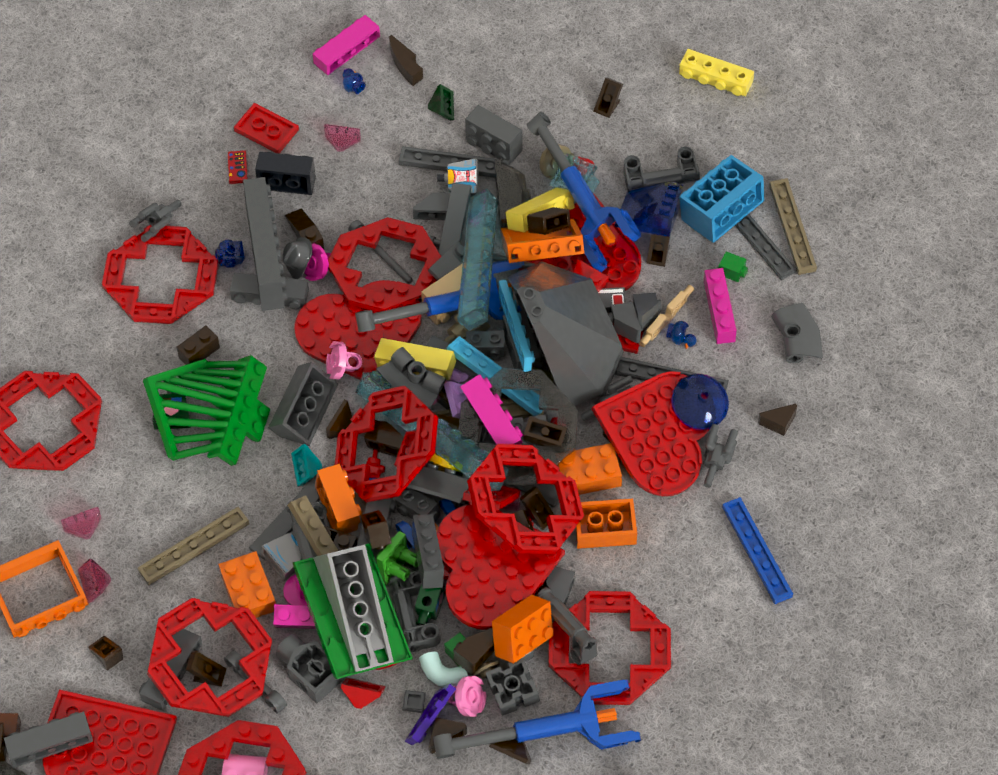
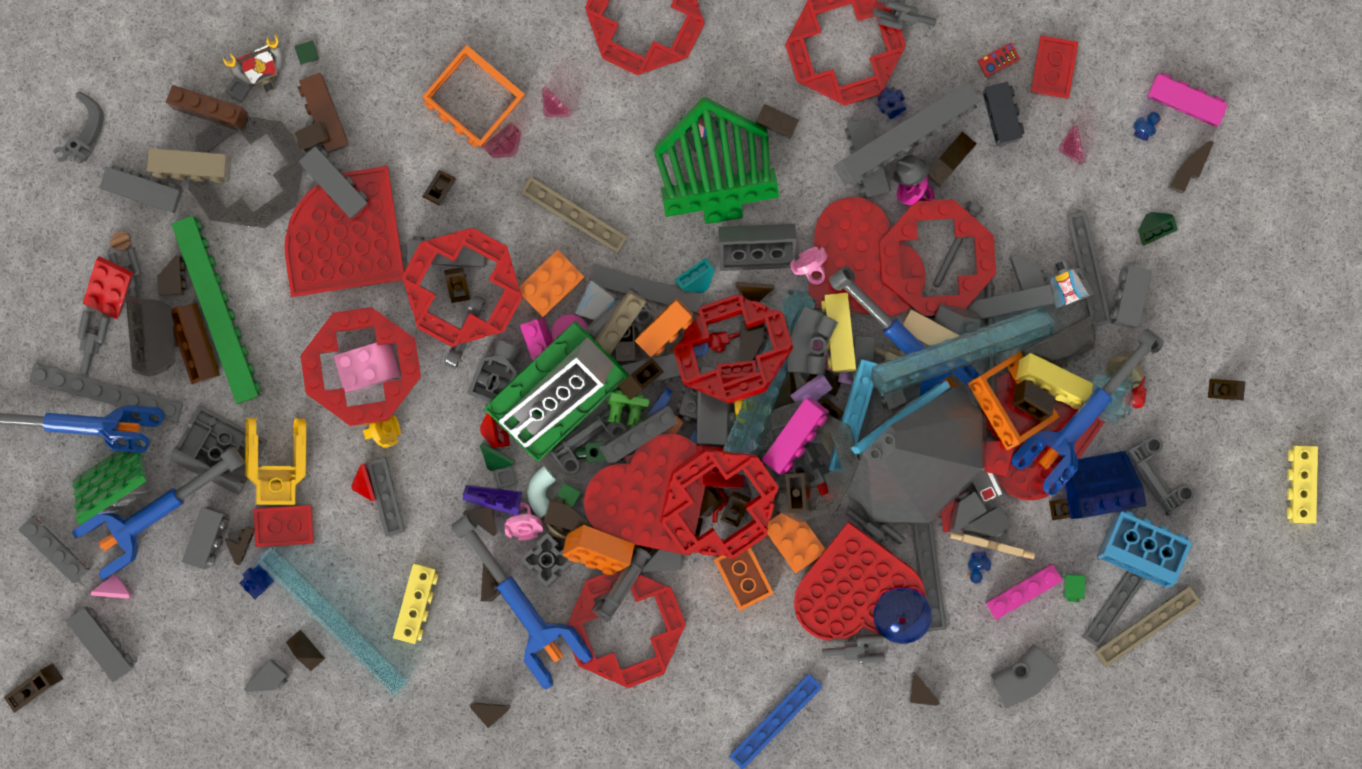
camera: 70 degrees right, 30 degrees up
(390, 701) = (494, 459): none -> dark green slope

